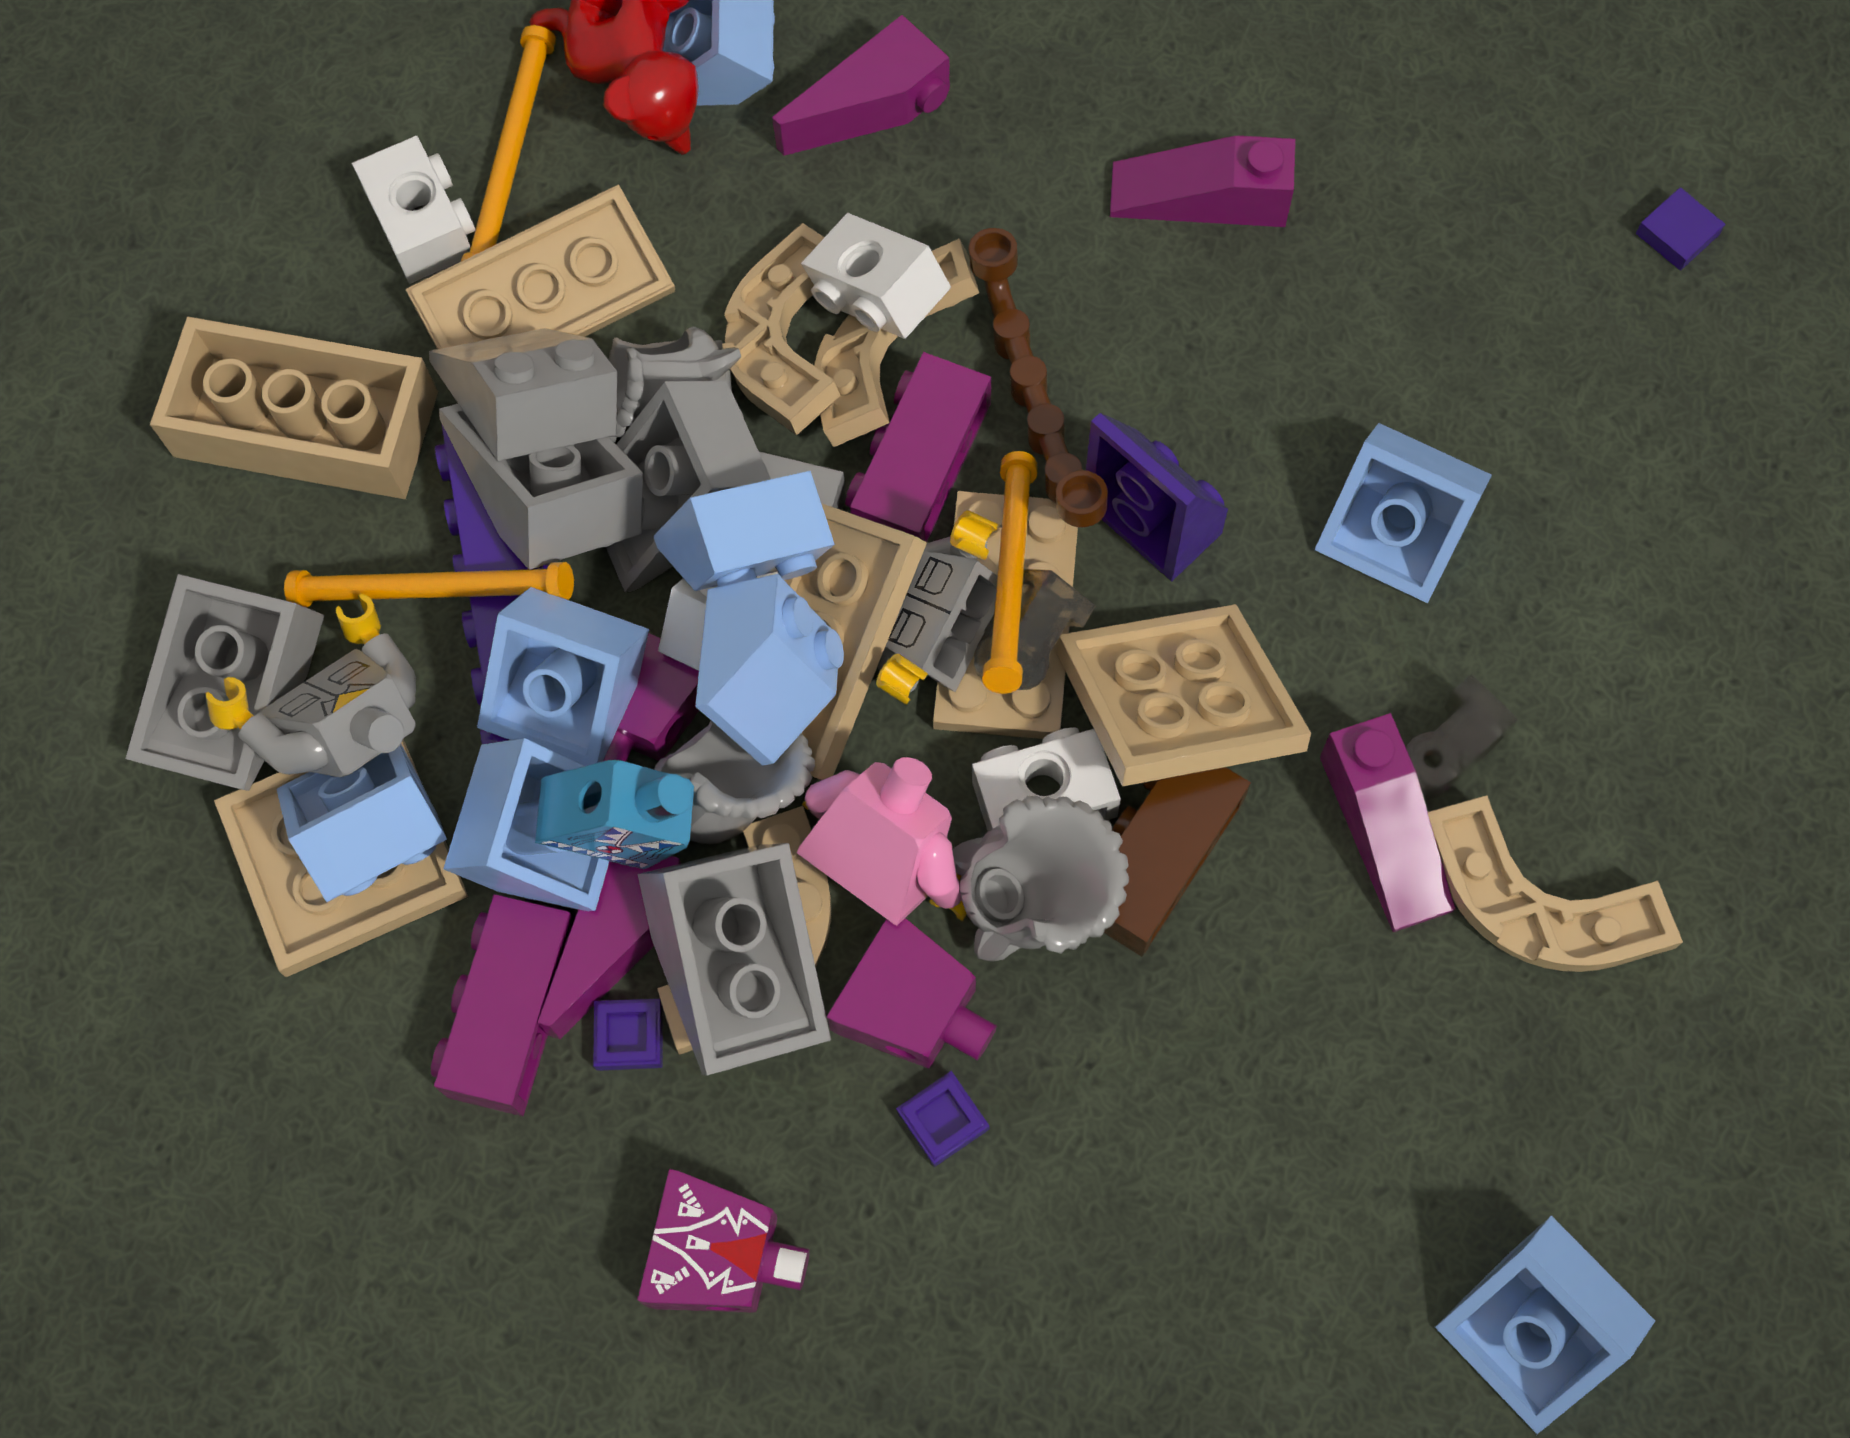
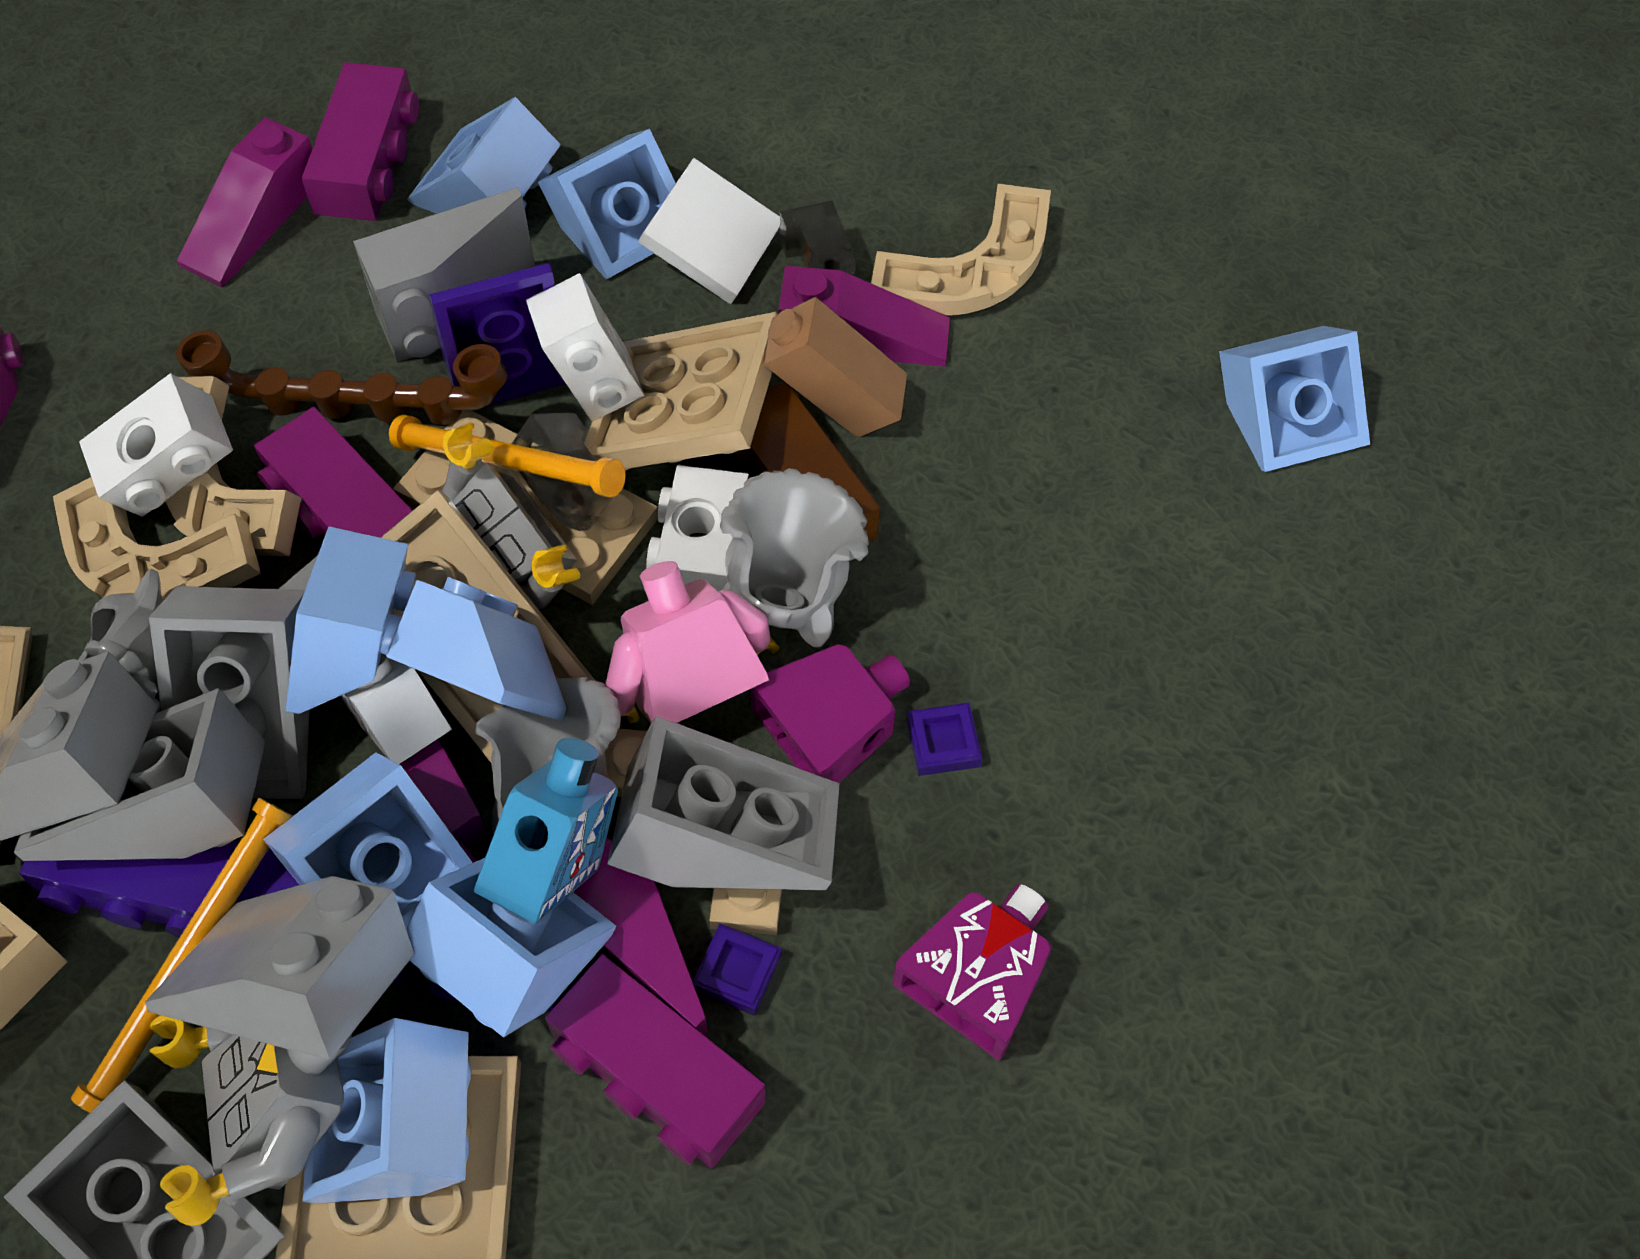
camera: 70 degrees left, 10 degrees down
(419, 672) = (292, 966): none -> light grey slope
(1158, 577) = (584, 347): none -> white brick
(1205, 401) = (439, 255): none -> light grey slope
(1285, 823) = (835, 367): none -> medium nougat brick
(1340, 234) = (360, 142): none -> magenta brick
(1374, 368) = (488, 158): none -> light blue slope
(1418, 618) = (711, 231): none -> white tile

